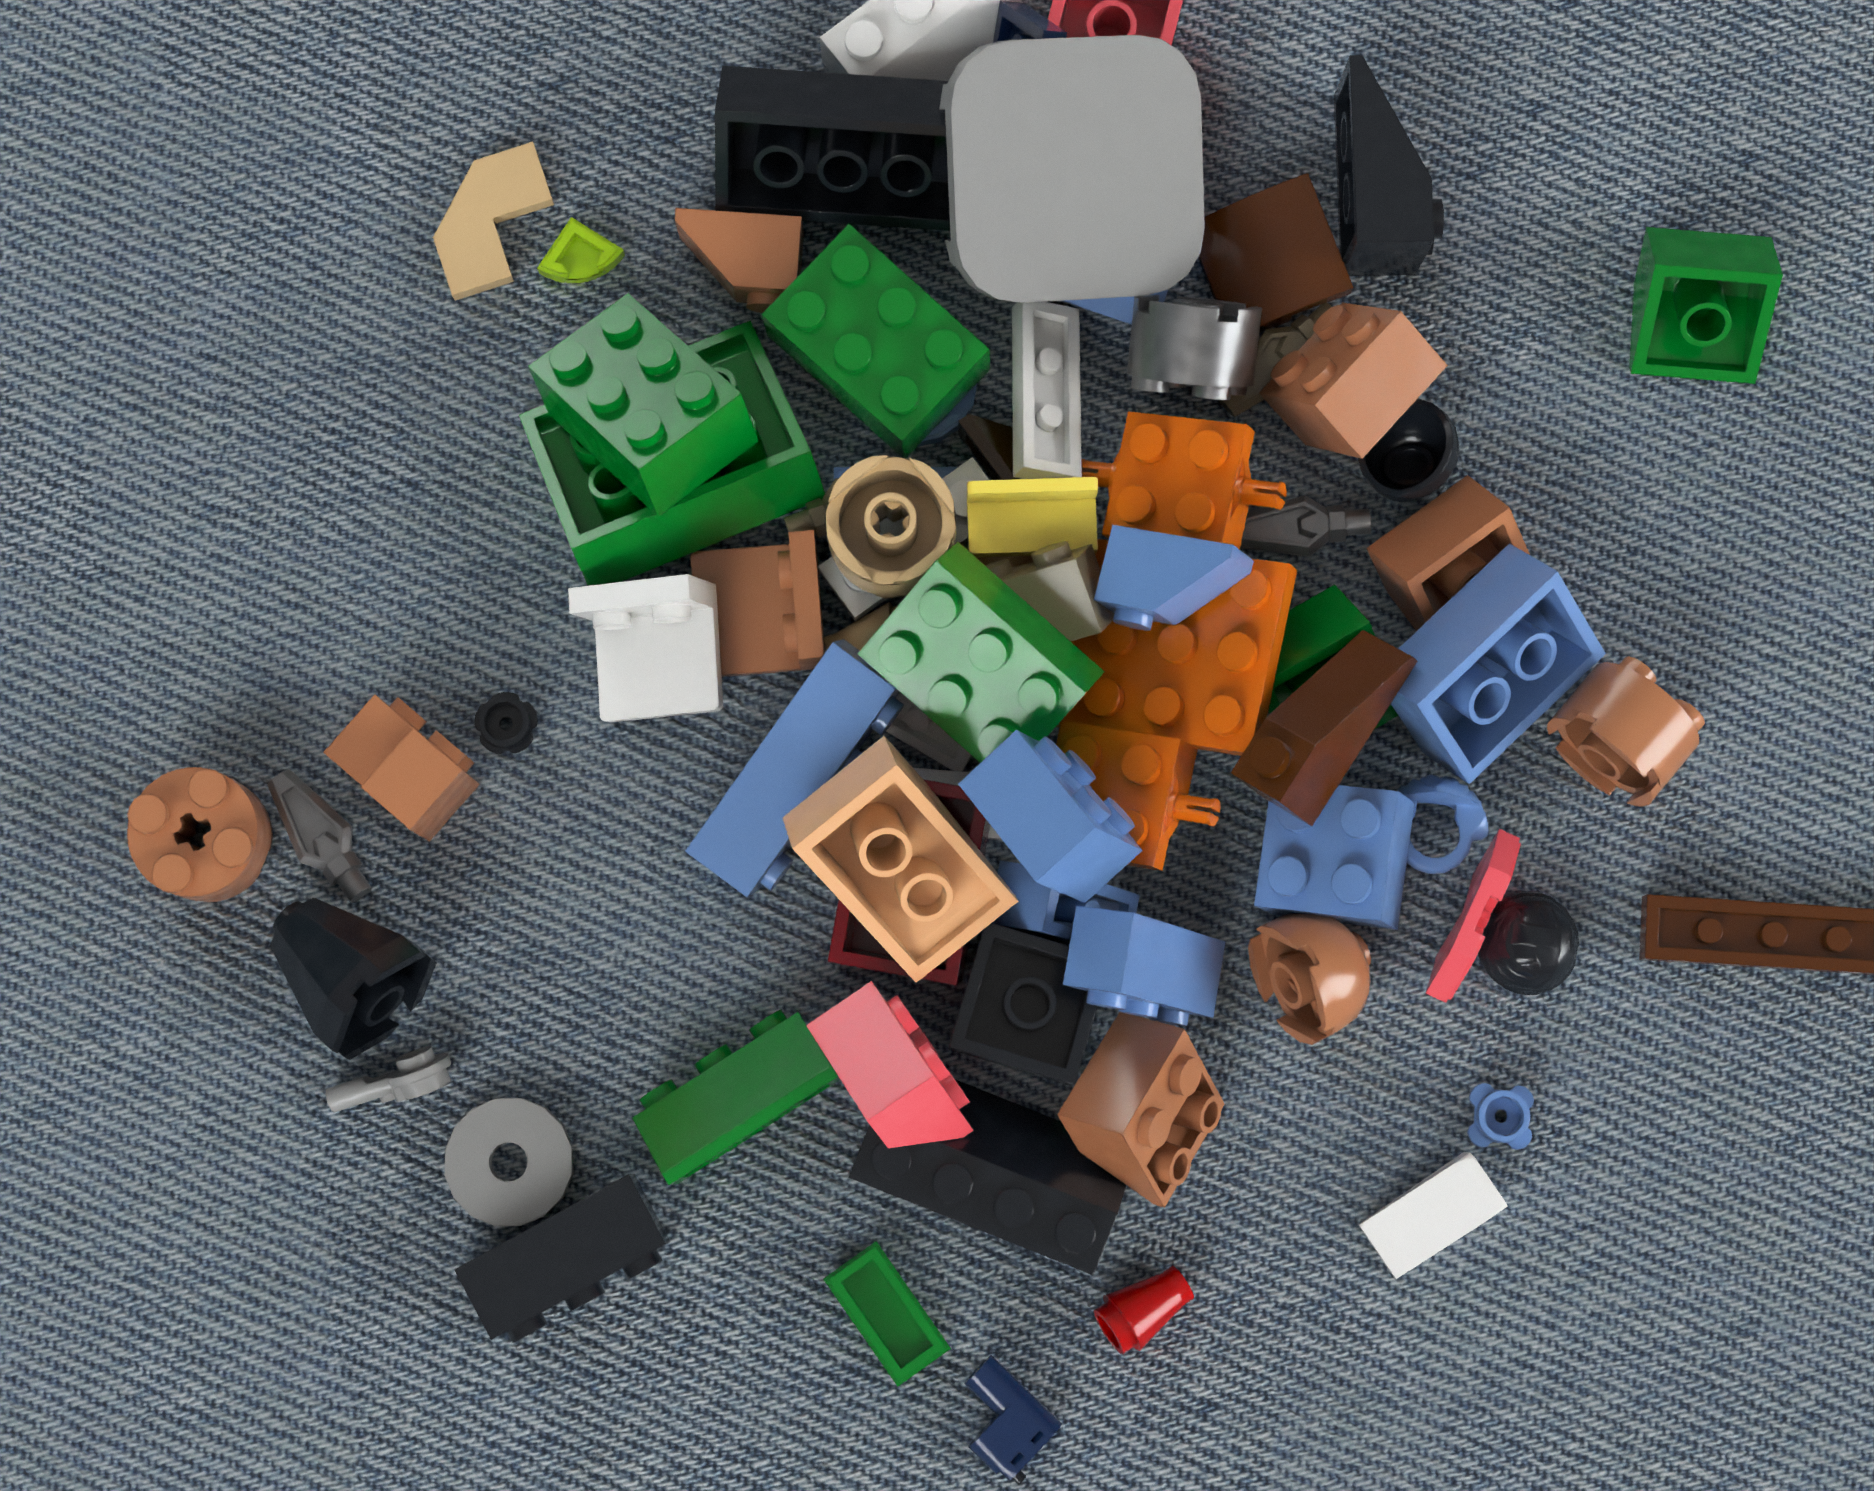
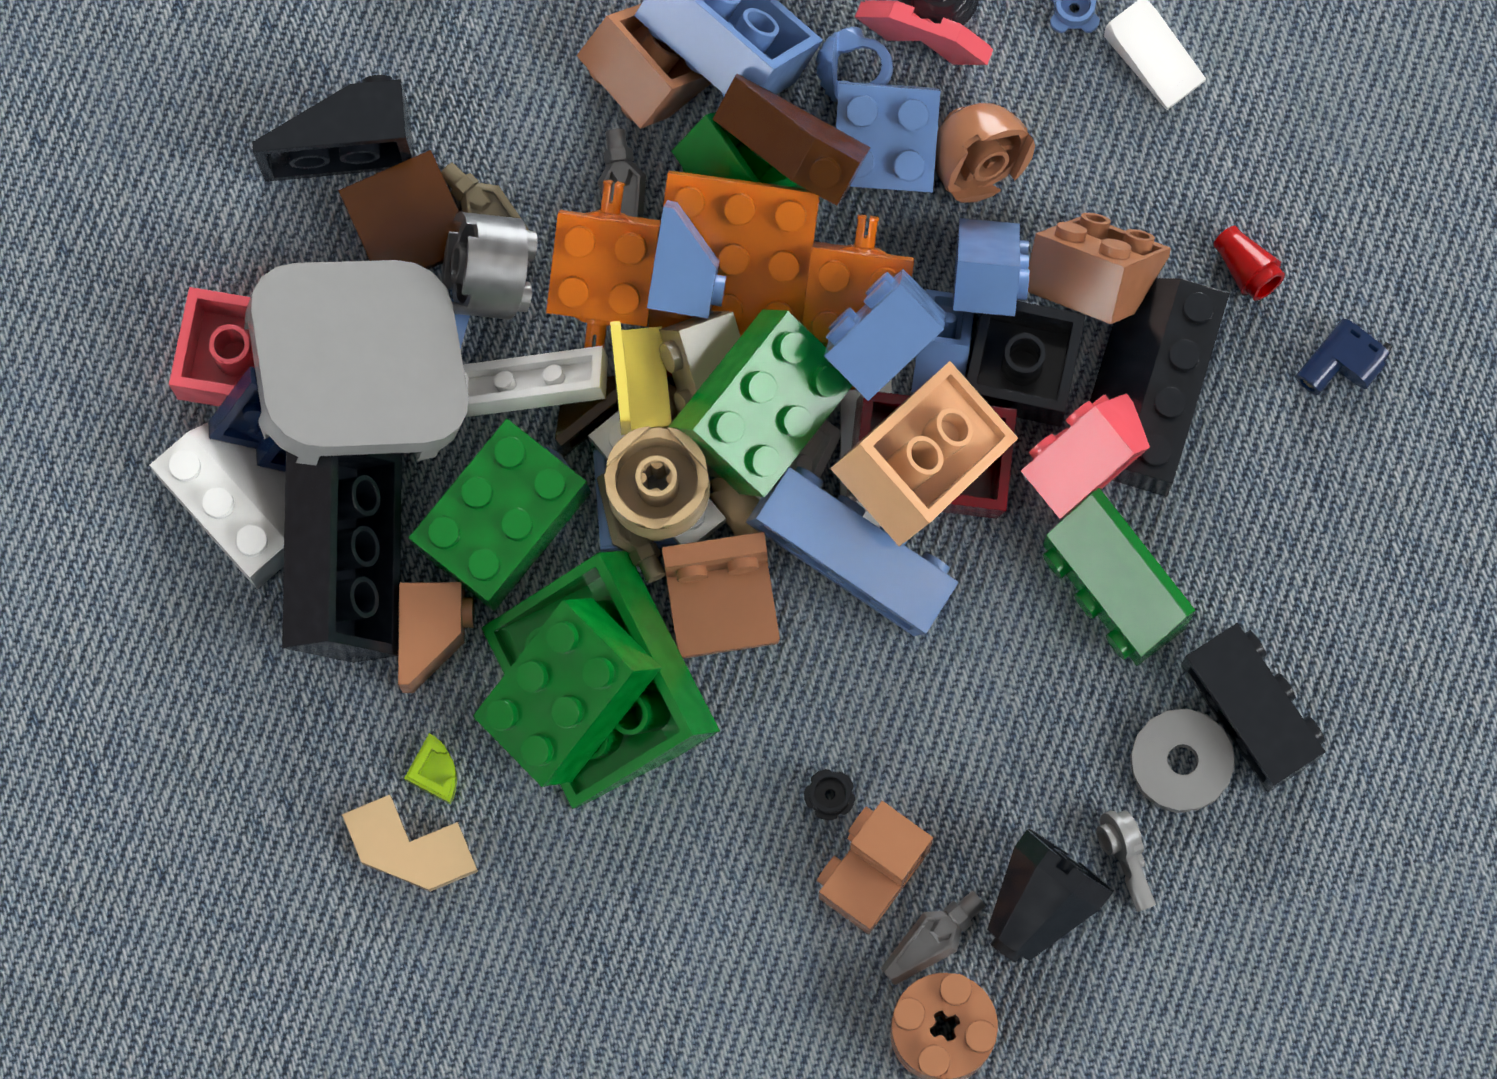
camera: 90 degrees left, 5 degrees down
(654, 646) = (764, 675): white bracket -> none
(887, 1313) = (1271, 457): green tile -> none
(1352, 378) = (508, 142): nougat brick -> none
(1413, 454) = (559, 101): black piece -> none

